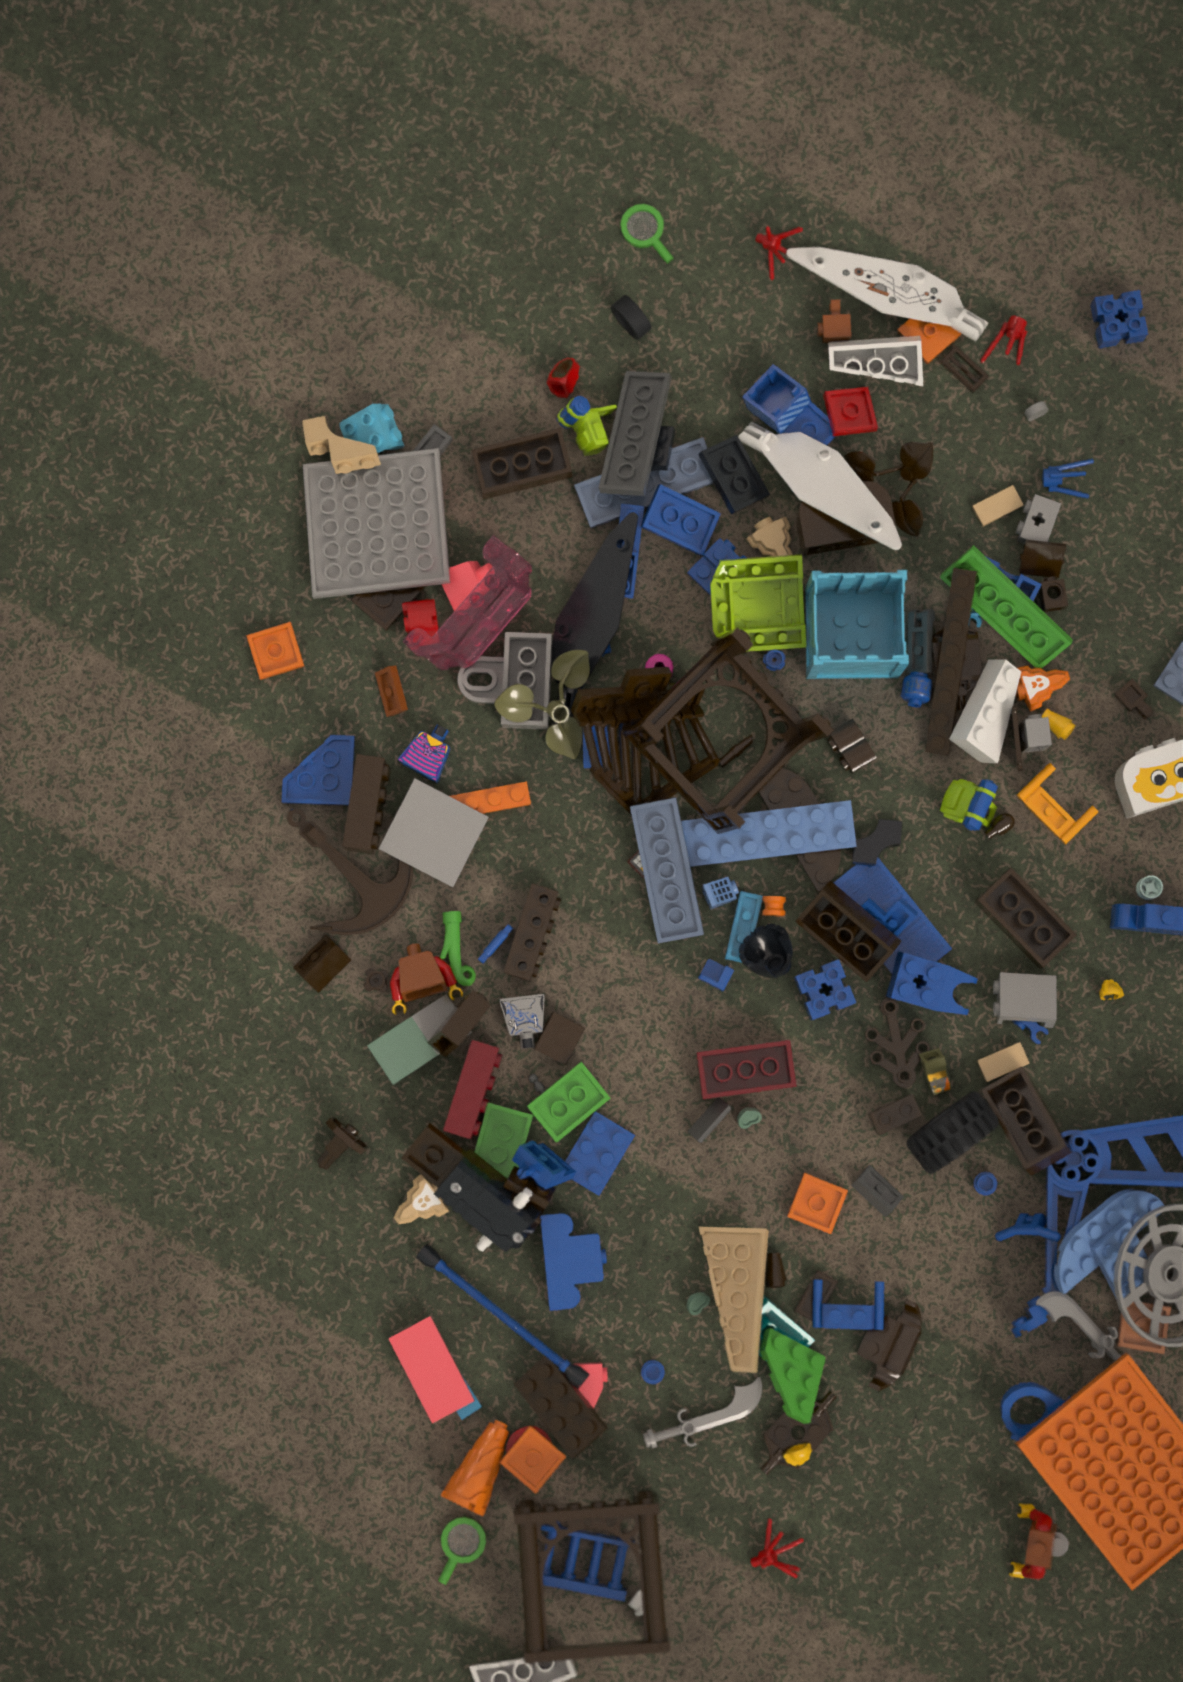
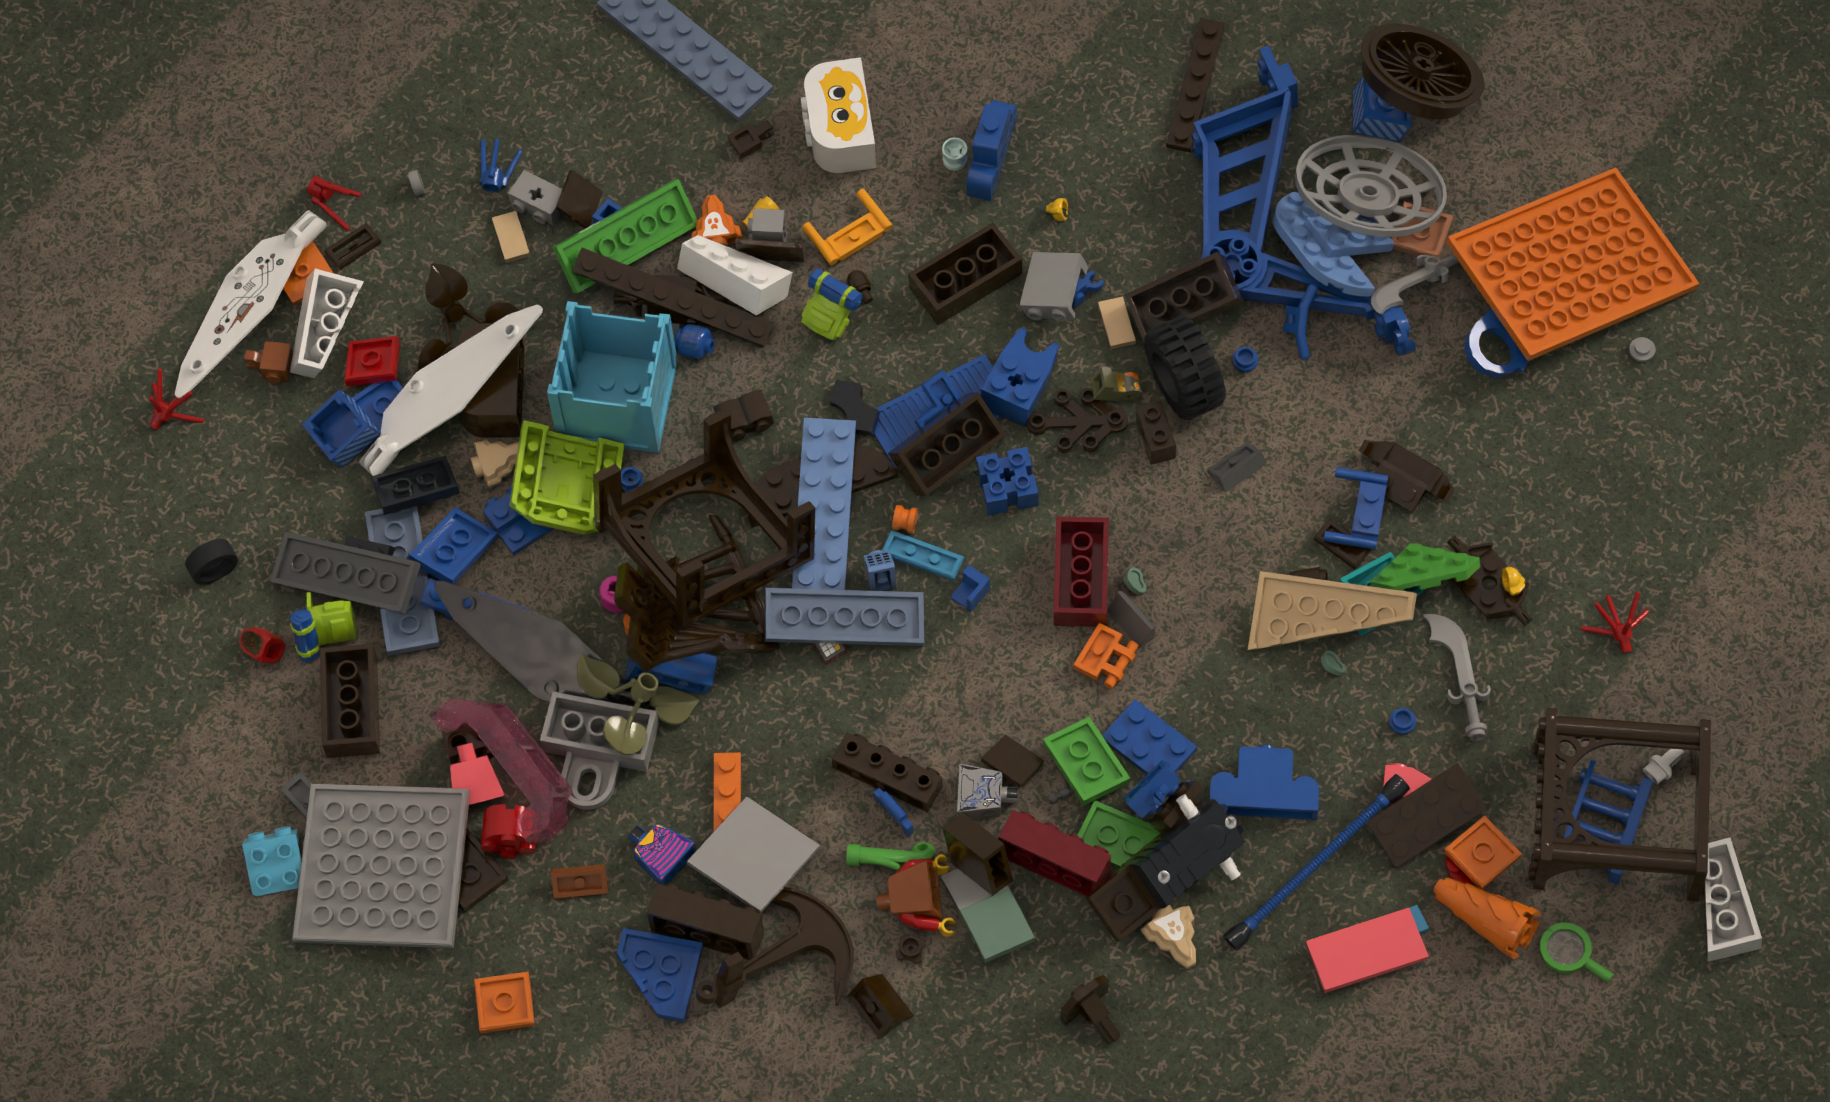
camera: 75 degrees left, 20 degrees down
(345, 453) = (292, 885): tan arch -> none
(643, 228) = (111, 540): piece -> none
(675, 1096) = (1099, 650): none -> orange plate
(767, 951) = (953, 527): black hair -> none
(817, 1203) = (1240, 526): orange plate -> none
(1040, 1544) = (1641, 357): torso -> none
(1049, 604) = (624, 188): dark brown brick -> none
(1111, 330) = (337, 88): blue brick -> none

